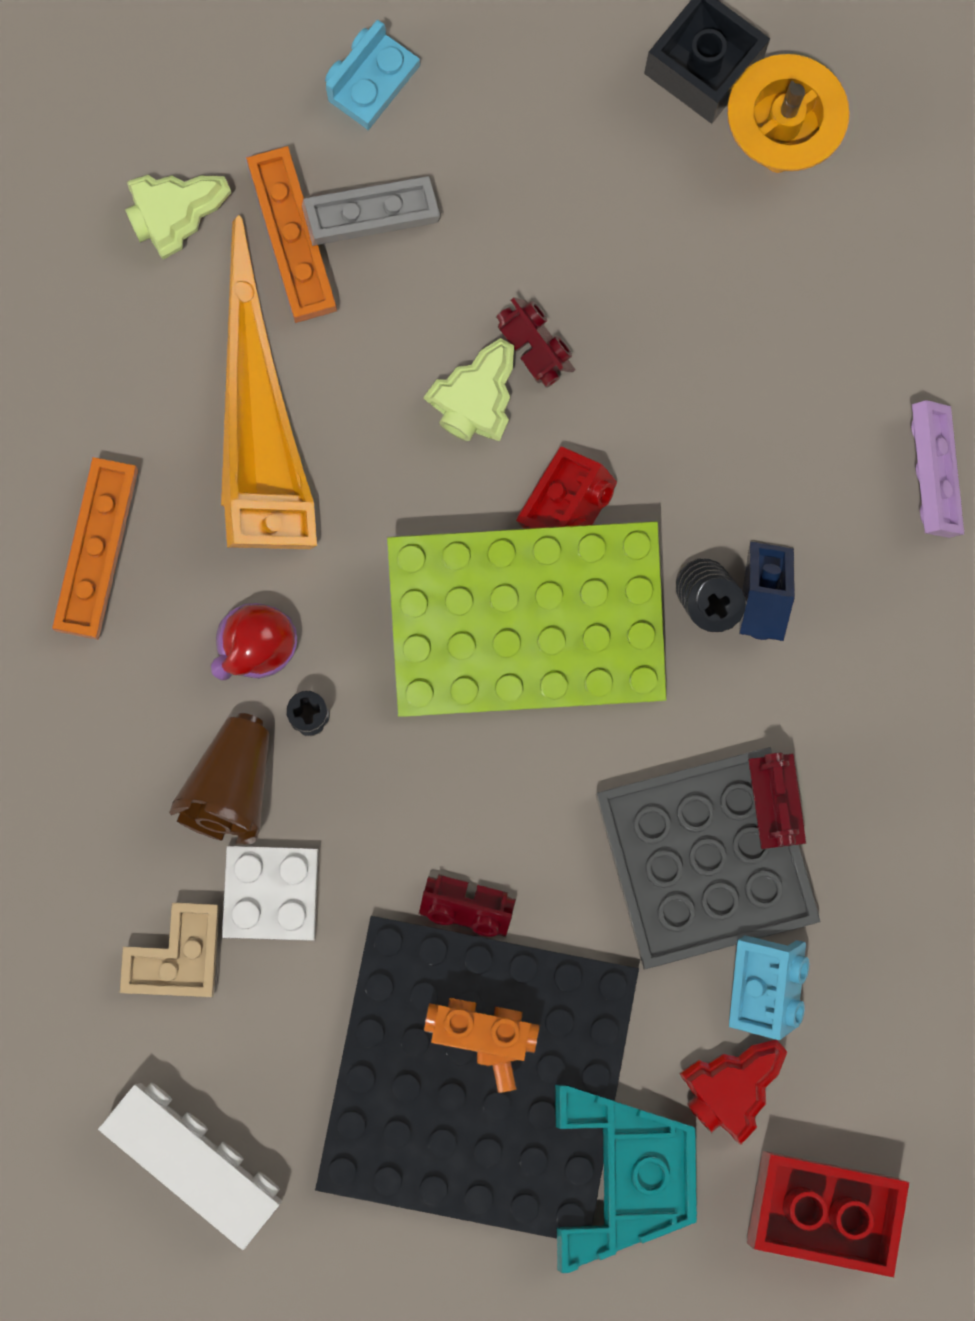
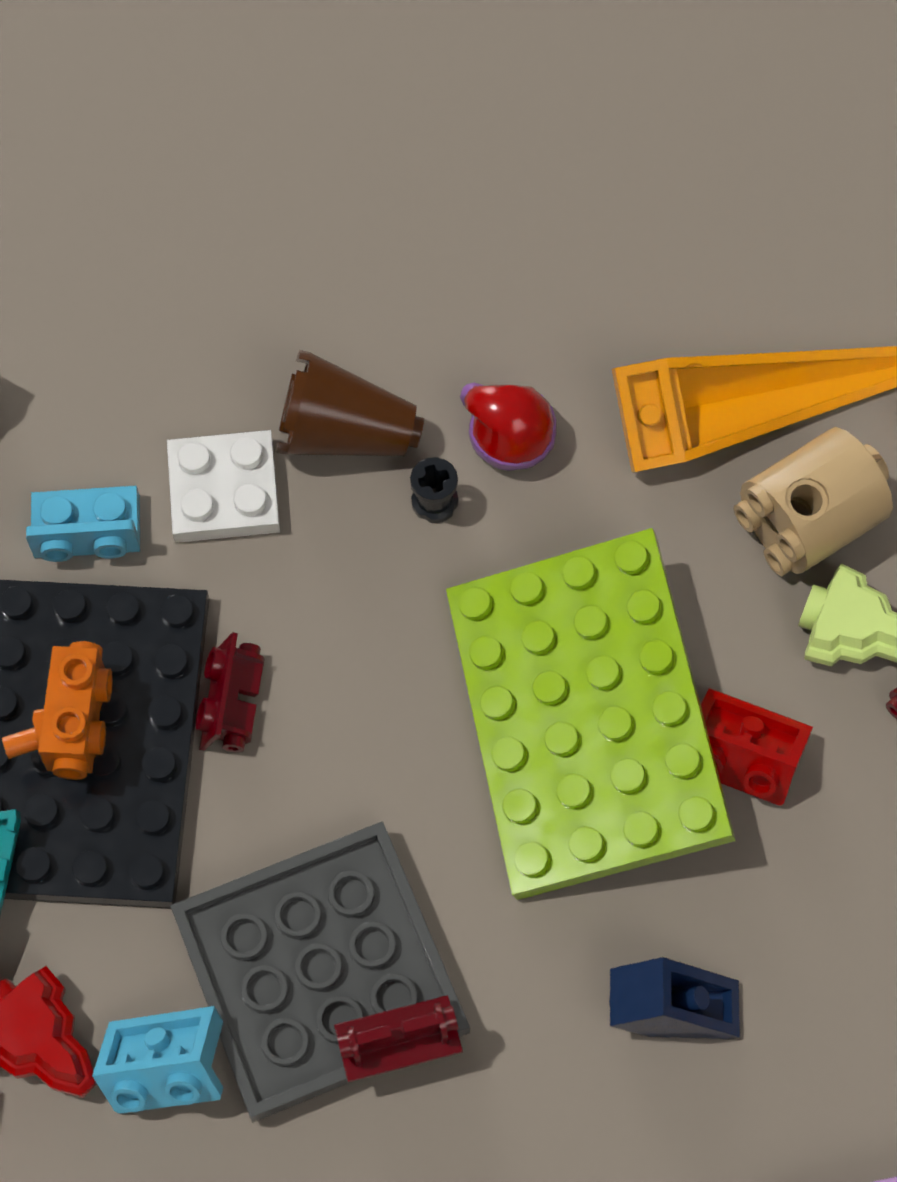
camera: 90 degrees right, 15 degrees down
(95, 548) = (591, 253): orange plate -> none
(187, 964) = (133, 408): tan plate -> none
(288, 1015) = (84, 523): none -> medium azure bracket
(373, 403) = (815, 500): none -> tan cylinder
(710, 595) = (651, 918): black piece -> none

